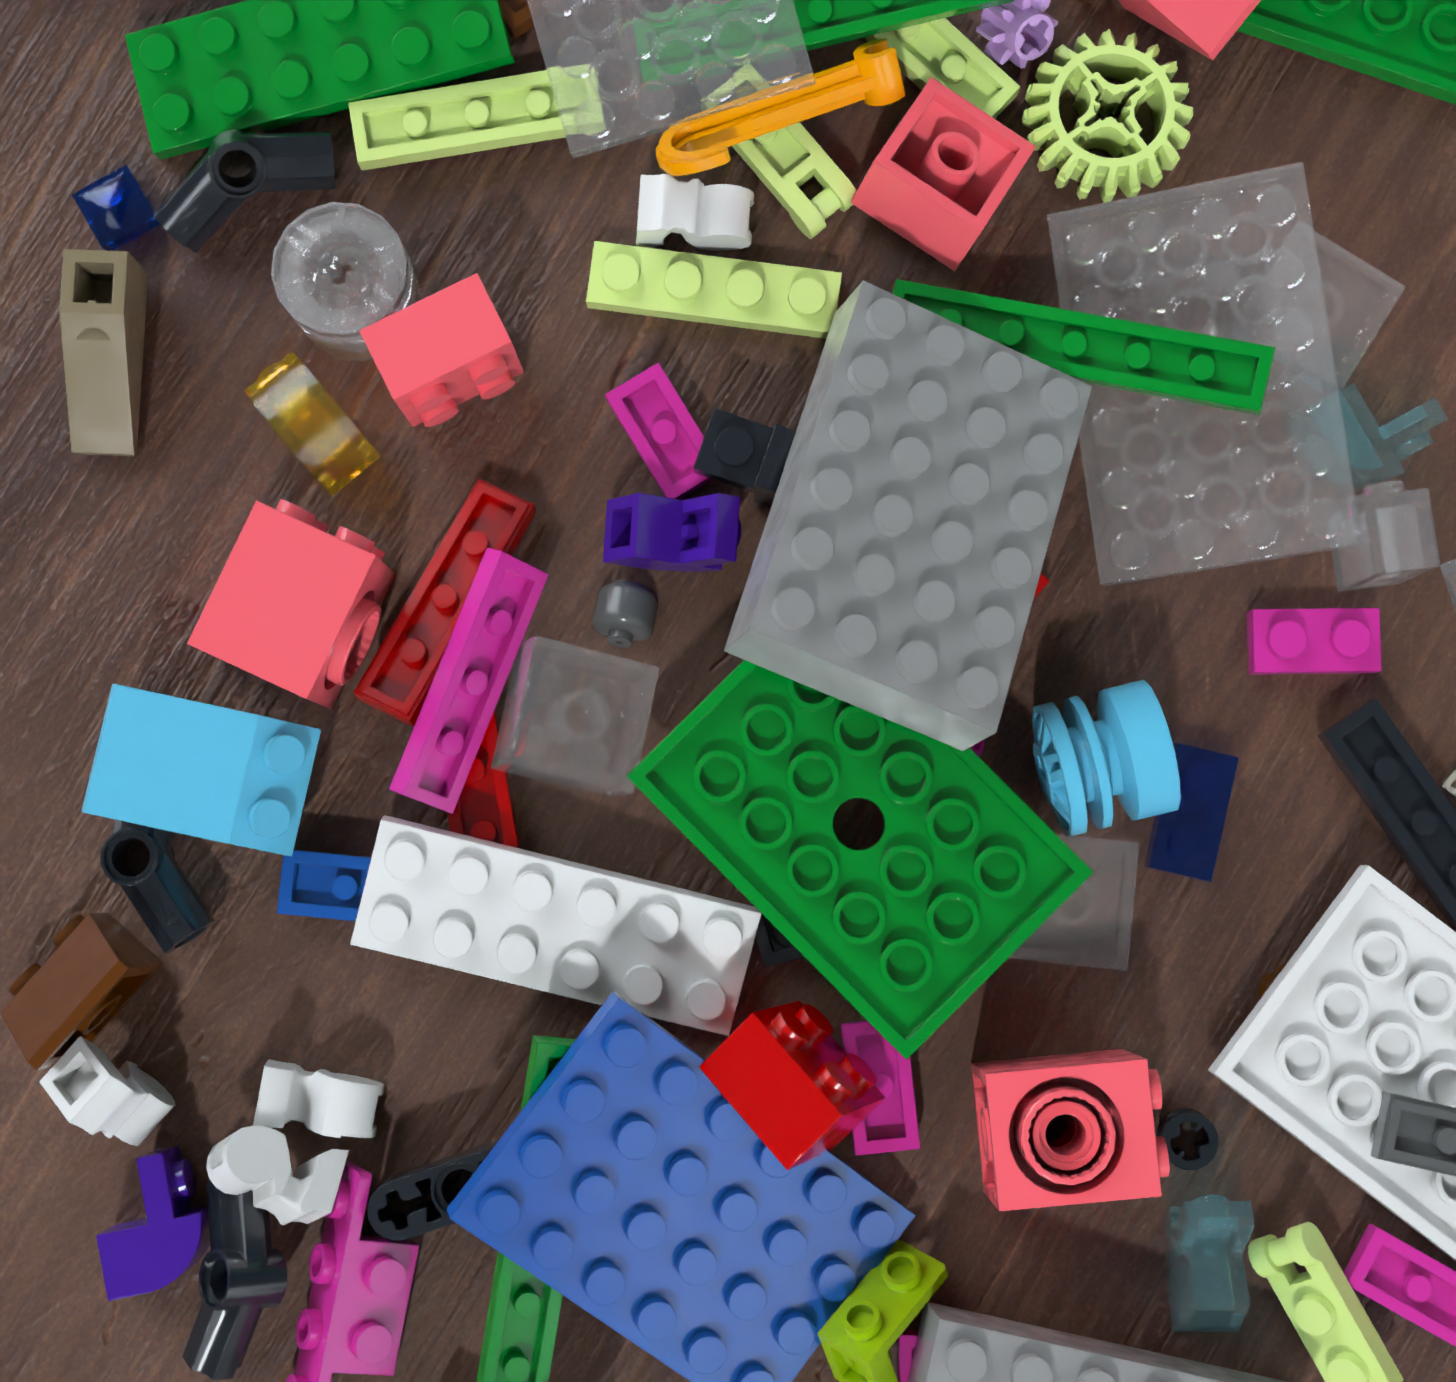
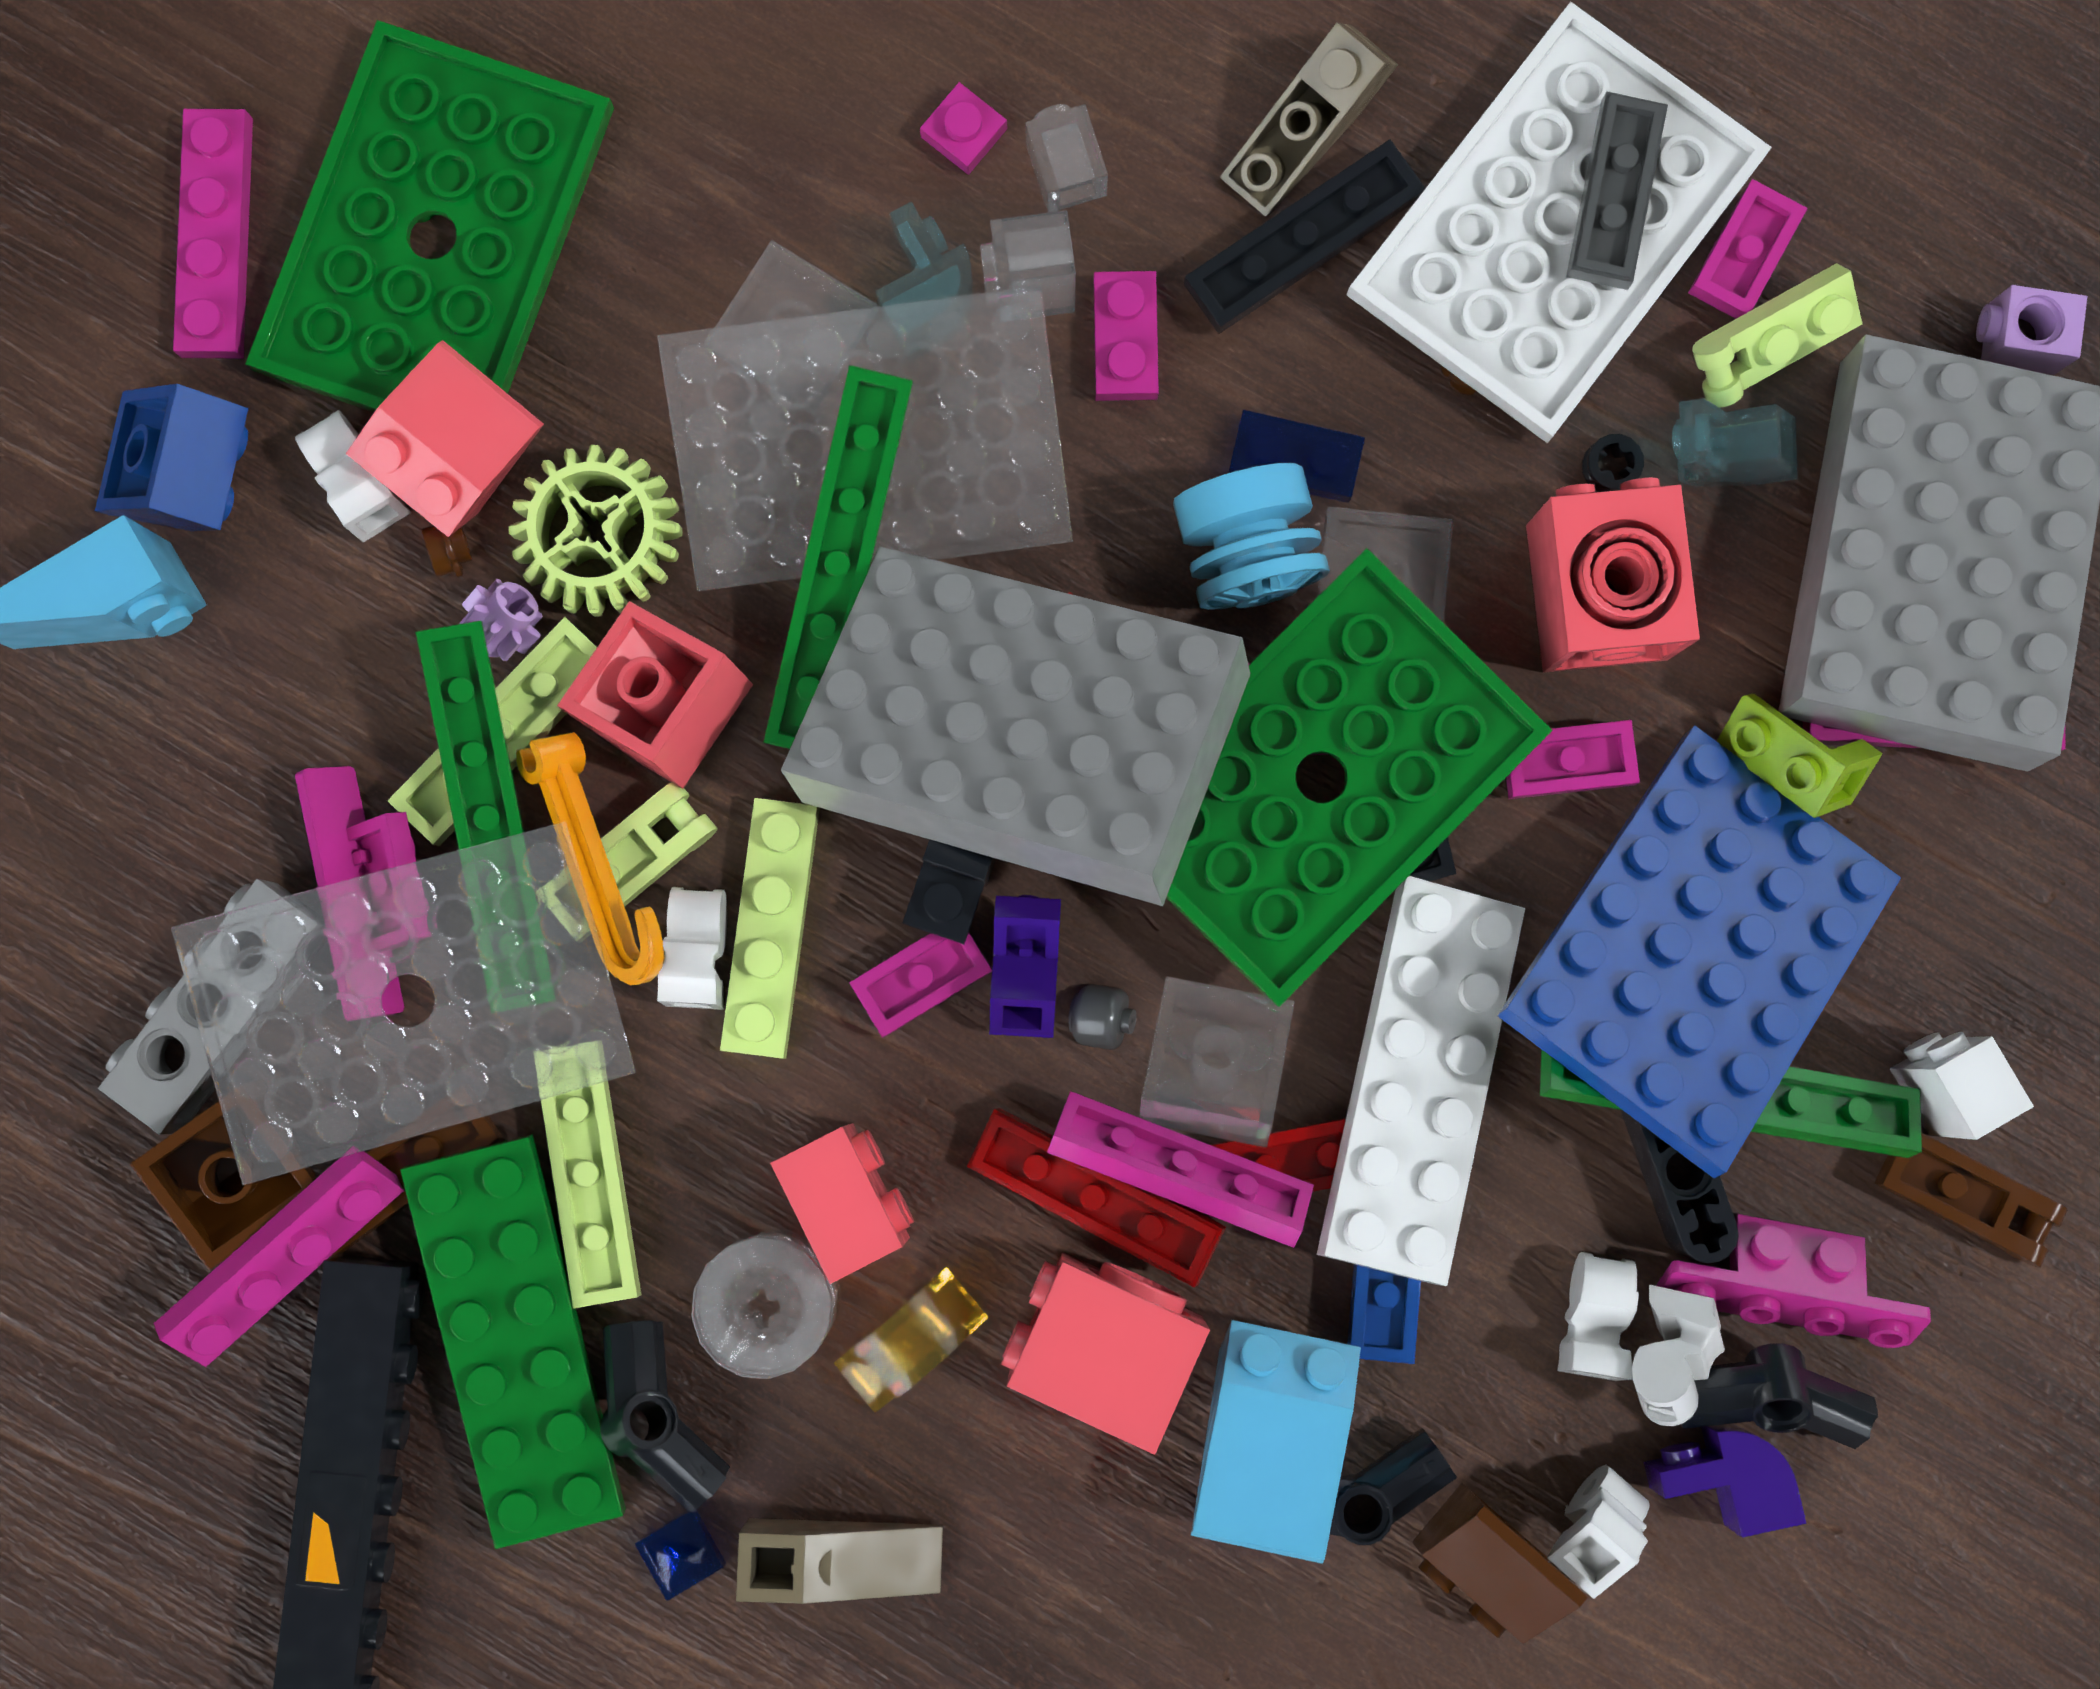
camera: 90 degrees left, 0 degrees up
(793, 1081) = (1575, 840): red brick -> none

